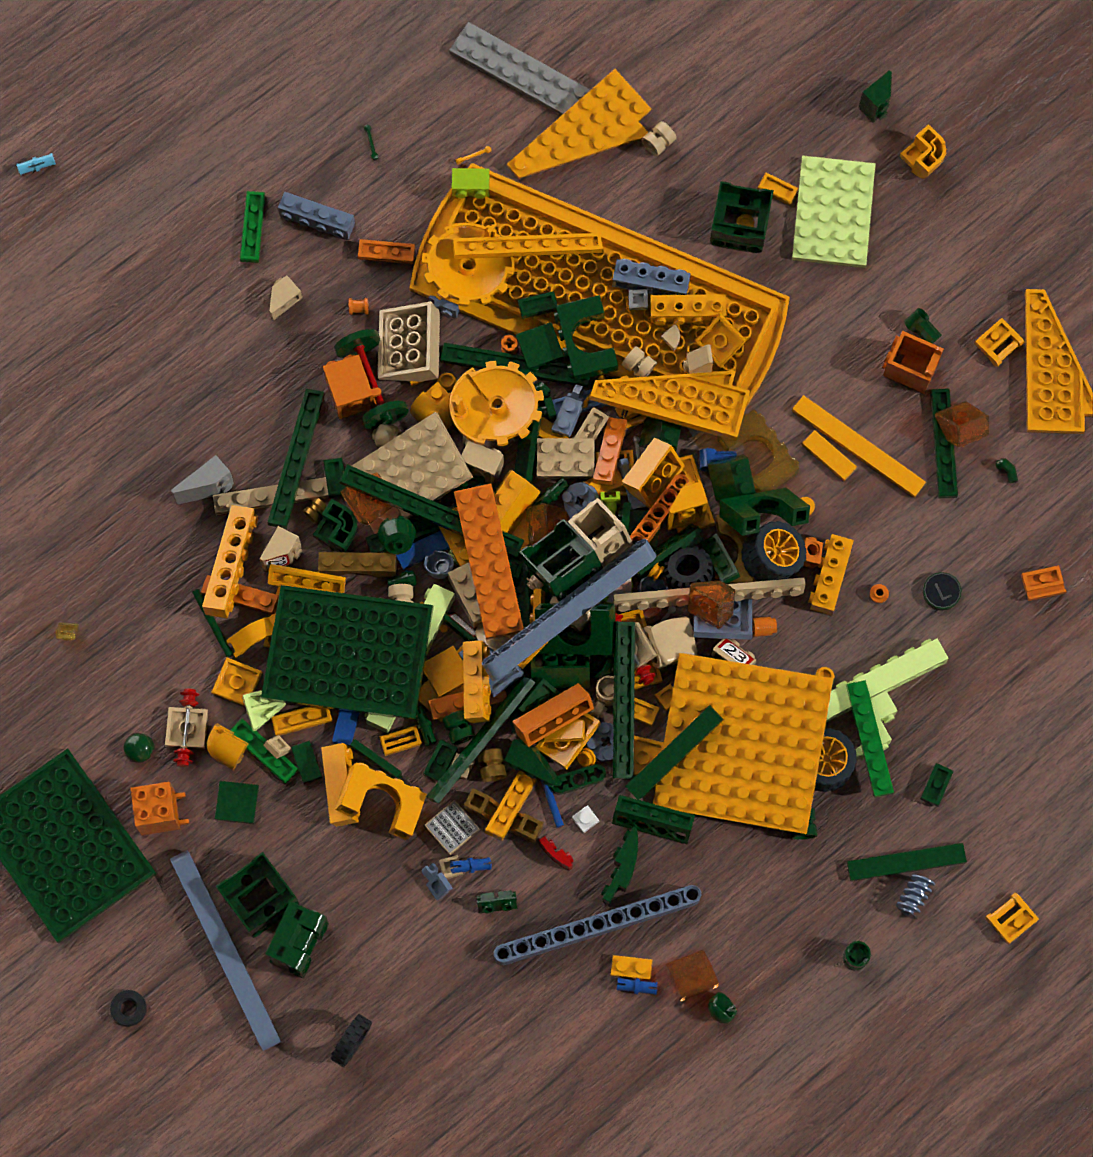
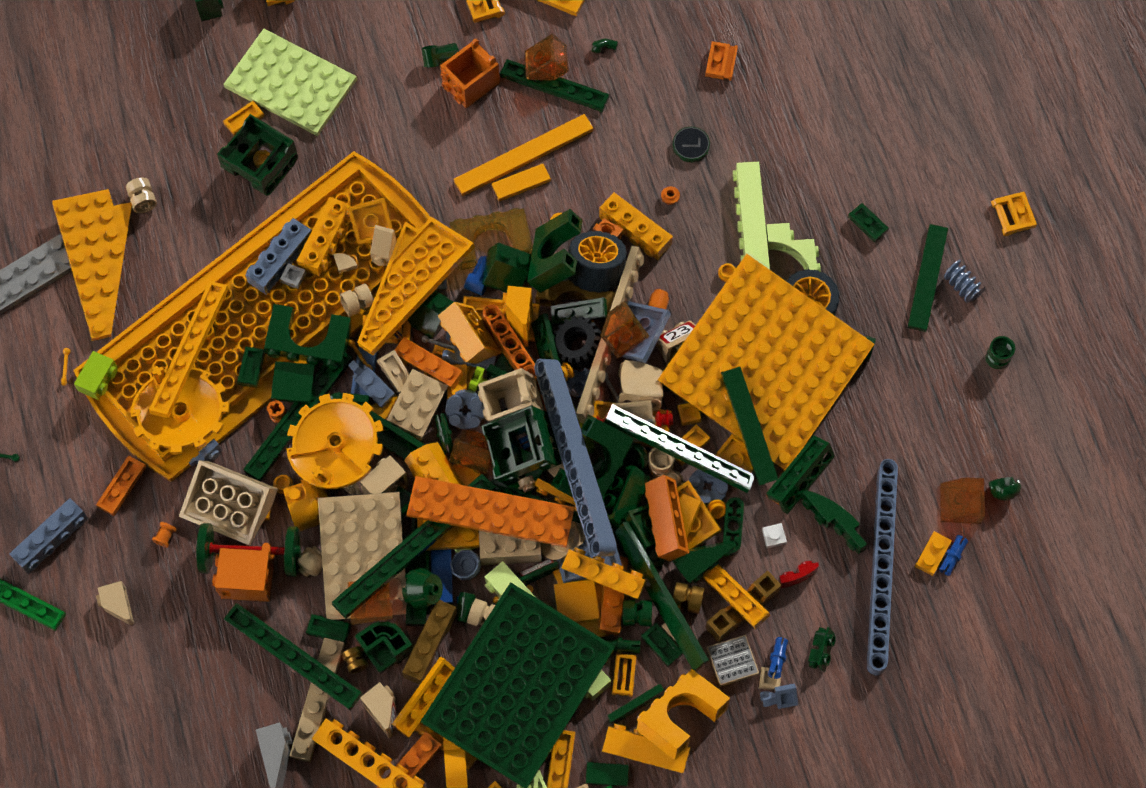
camera: 65 degrees left, 5 degrees down
(345, 727) = (589, 723): blue tile -> none
(553, 805) = (747, 559): blue bar -> none
(869, 739) = (806, 255): green plate -> none

